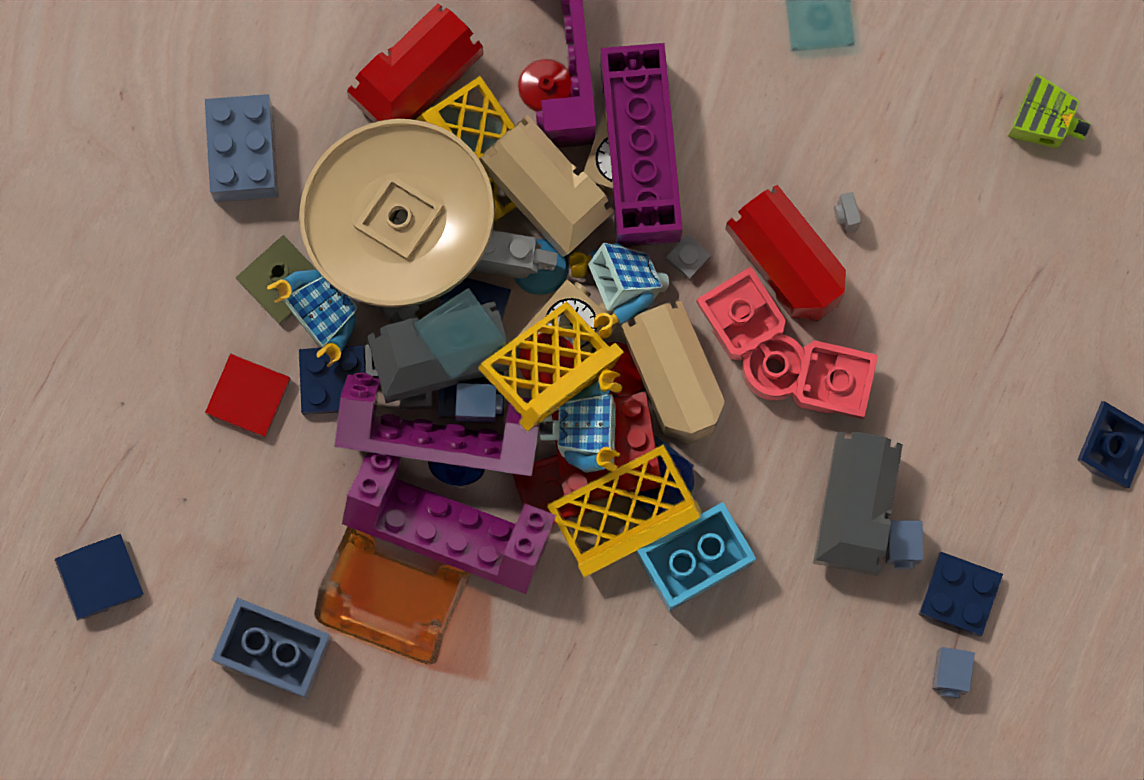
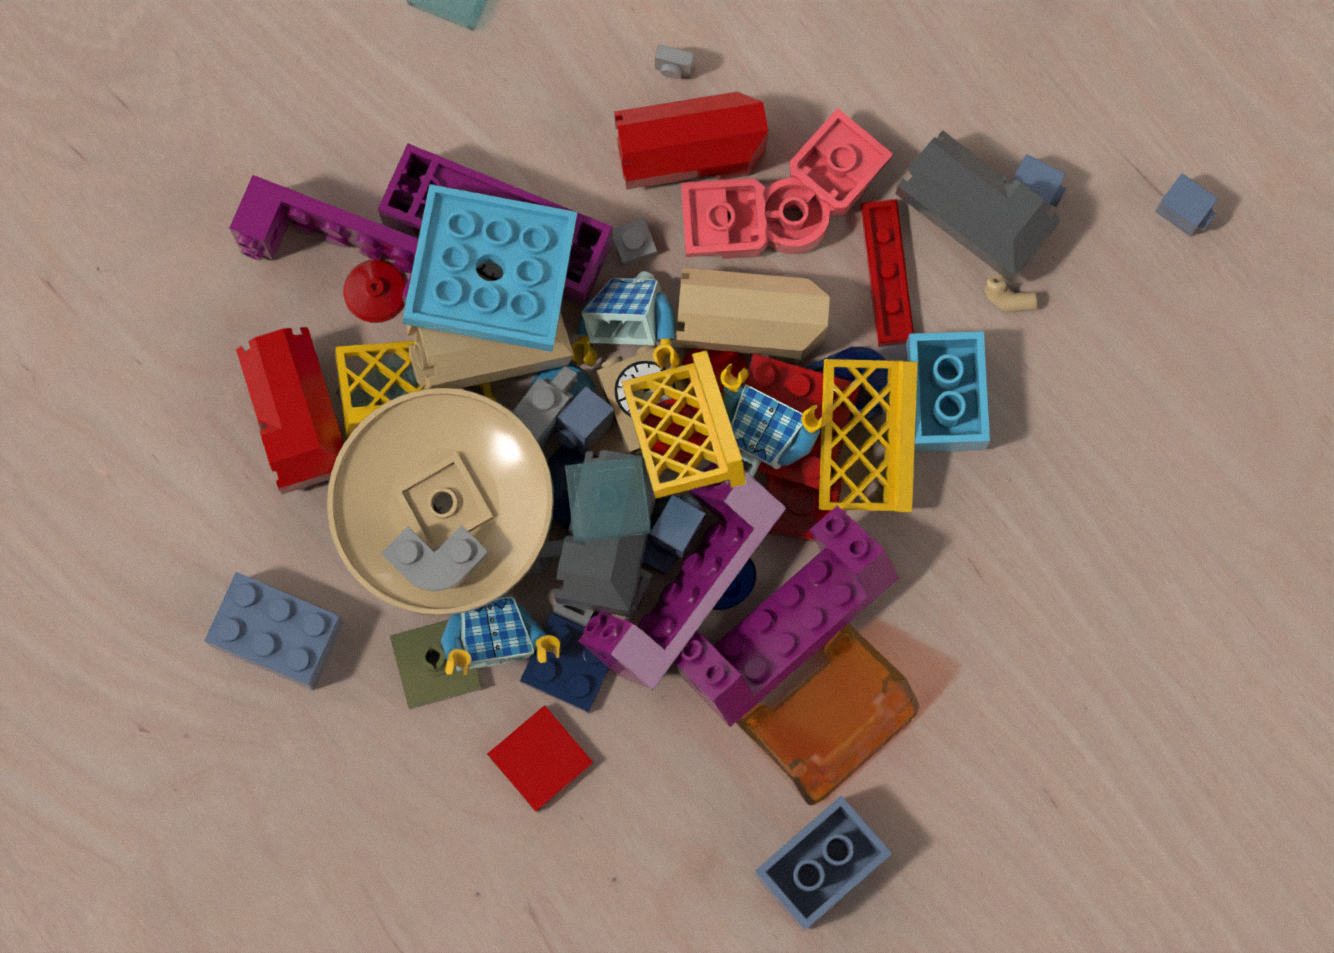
camera: 60 degrees left, 0 degrees up
(341, 235) = (437, 569): none -> light grey plate
(522, 290) = (584, 421): none -> sand blue brick
(617, 122) = (475, 228): none -> medium azure piece
(771, 463) = (887, 272): none -> red tile
(799, 567) = (1006, 299): none -> tan arm
(960, 594) = (1112, 159): dark blue plate -> none

